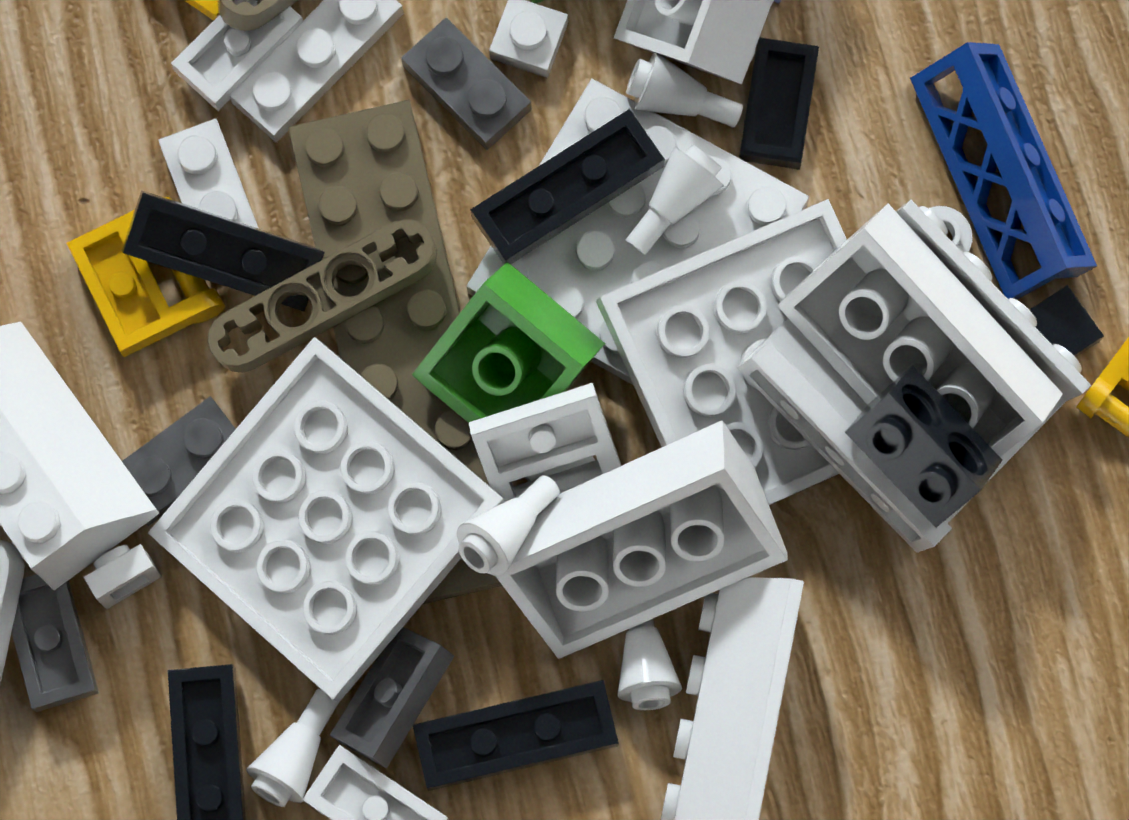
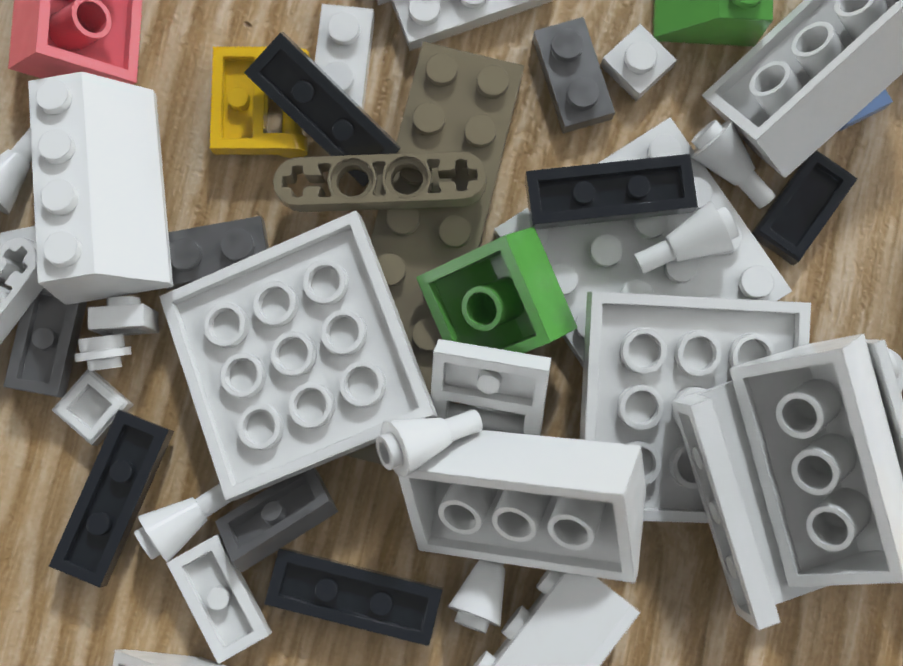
camera: 25 degrees right, 5 degrees up
(117, 620) = (102, 351): none -> white plate
(133, 687) = (91, 407): none -> white tile
(924, 446) = (793, 548): black brick -> none

